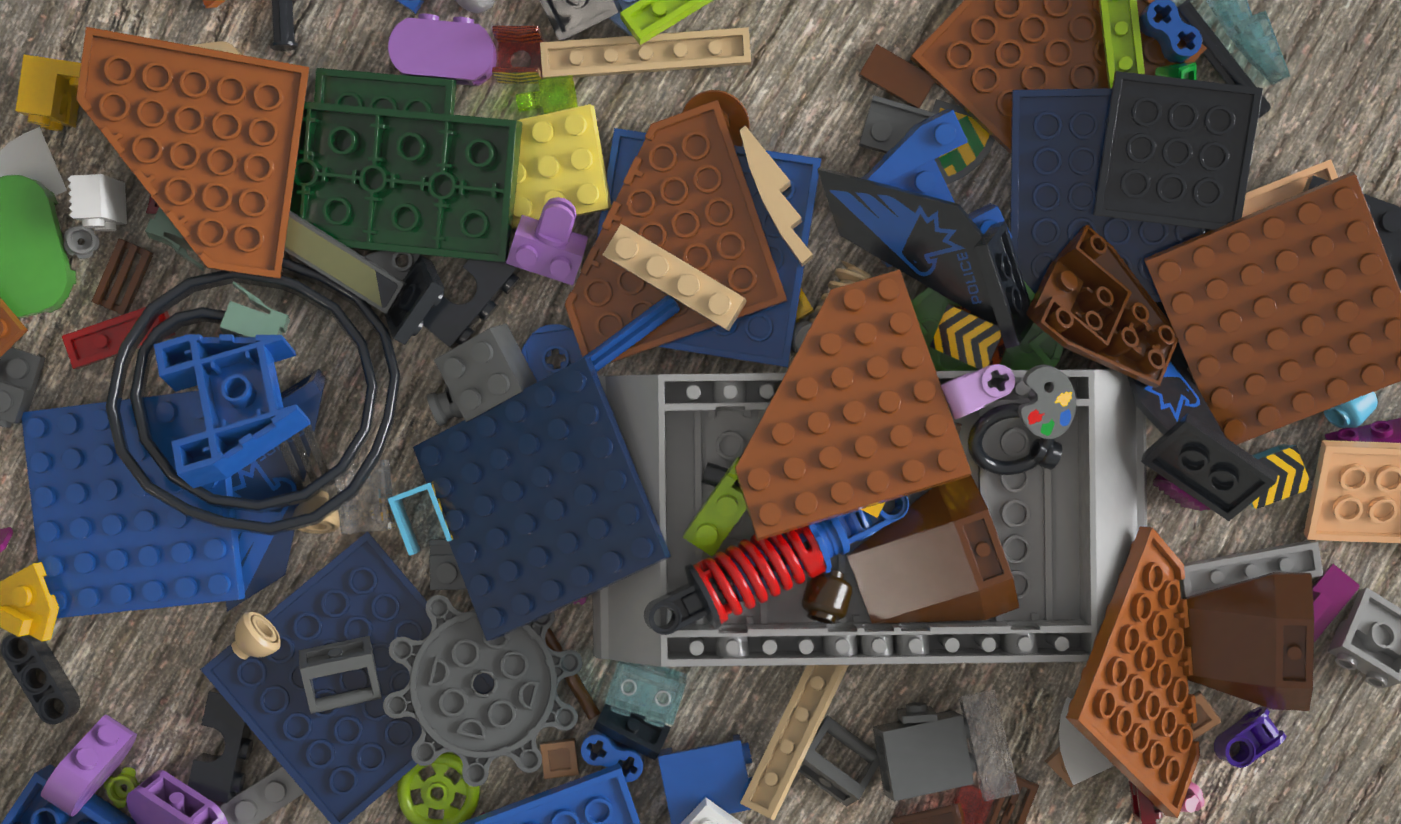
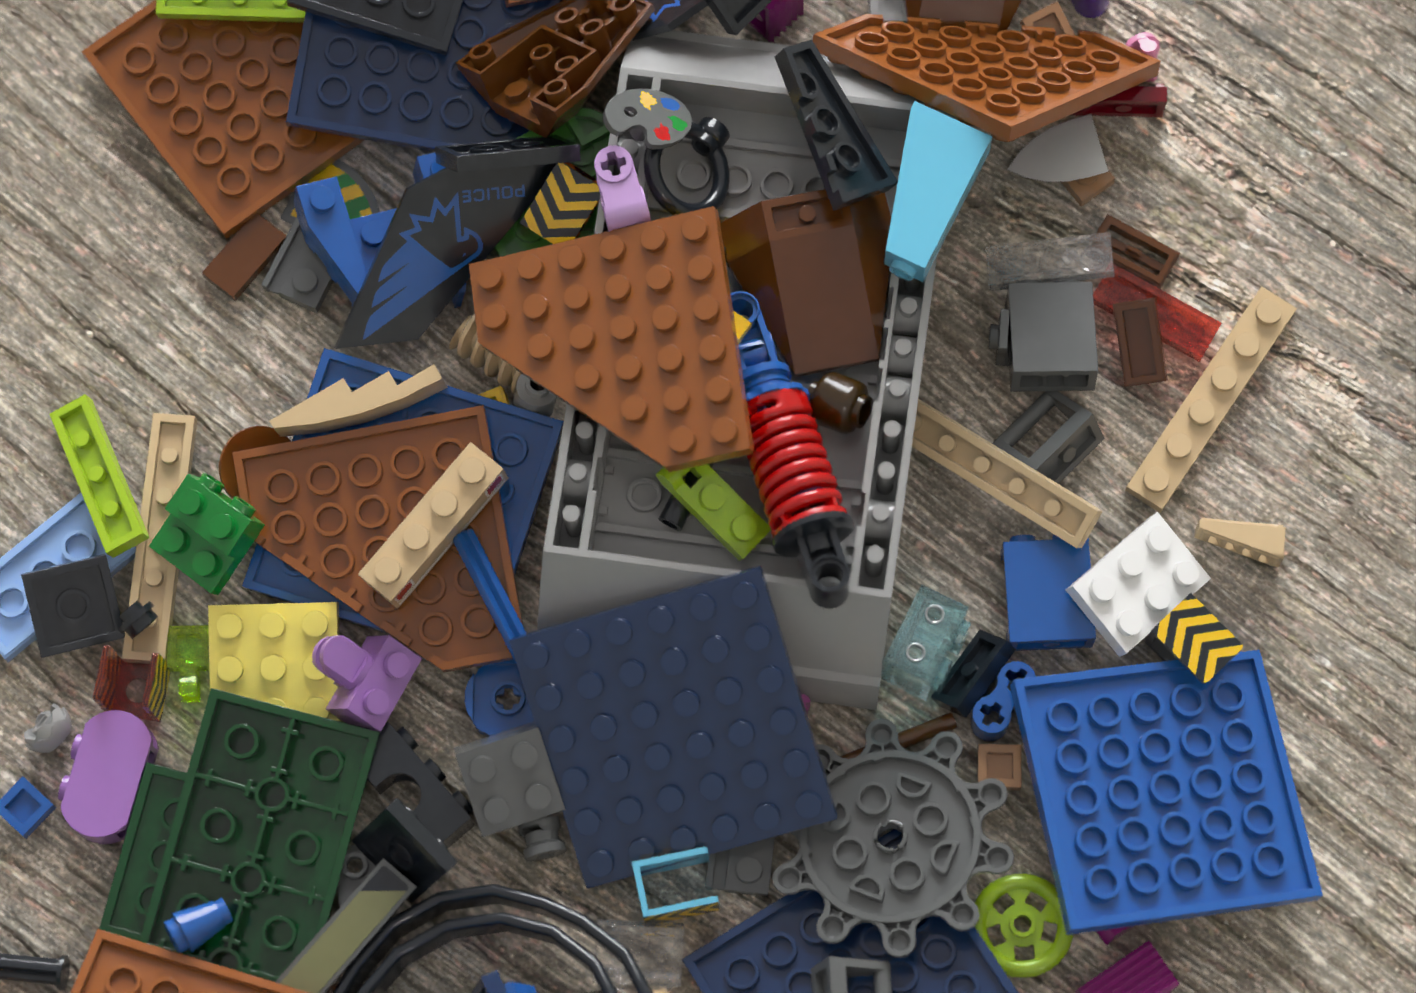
camera: 80 degrees left, 15 degrees down
(325, 145) = (196, 925): none -> blue cone
(569, 48) = (137, 618): none -> black plate
(648, 91) = (206, 532): none -> green plate
(1024, 653) = (933, 182): none -> medium azure slope
(1055, 565) = (837, 139): none -> black wing

